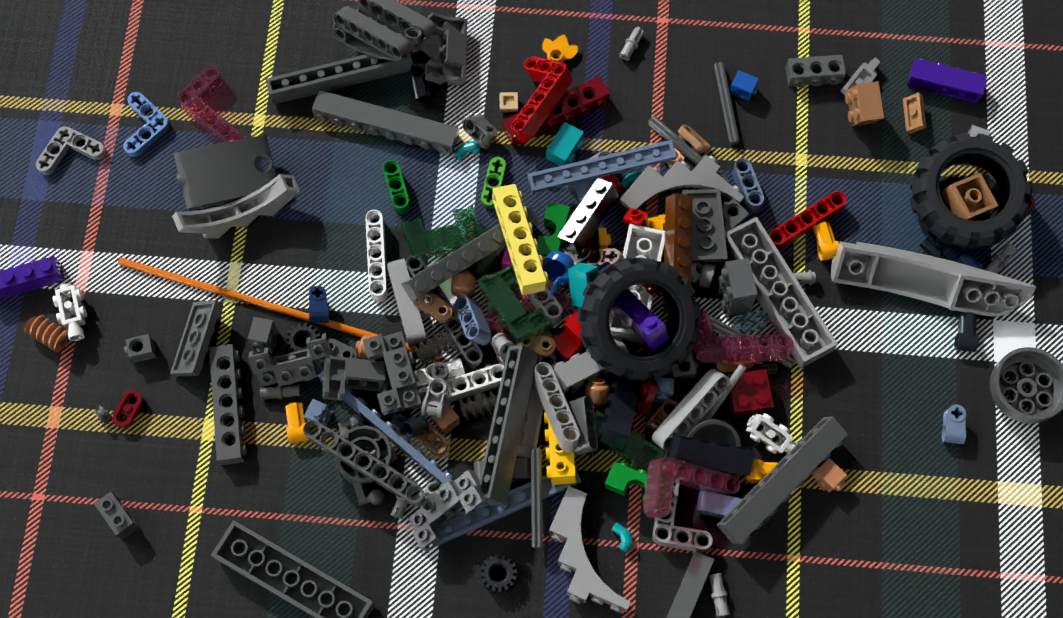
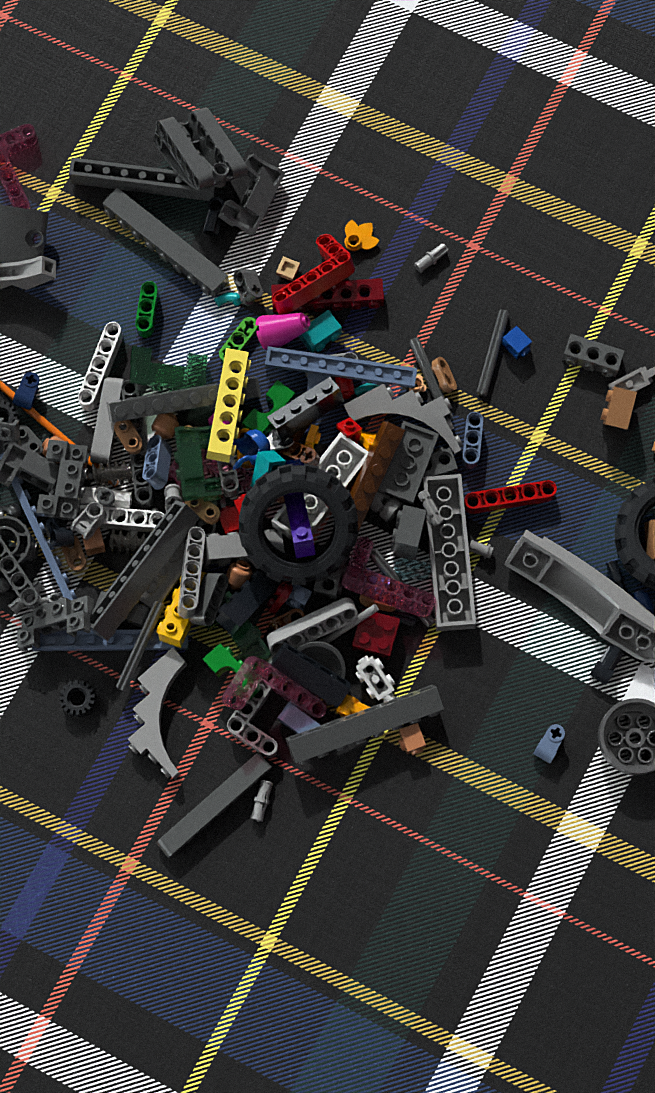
camera: 25 degrees right, 5 degrees up
(531, 154) = (280, 328): none -> dark pink cone
(625, 535) = (204, 713): teal arm -> none
(735, 249) = (429, 505): none -> light grey axle
(827, 246) = (519, 522): light orange piece -> none

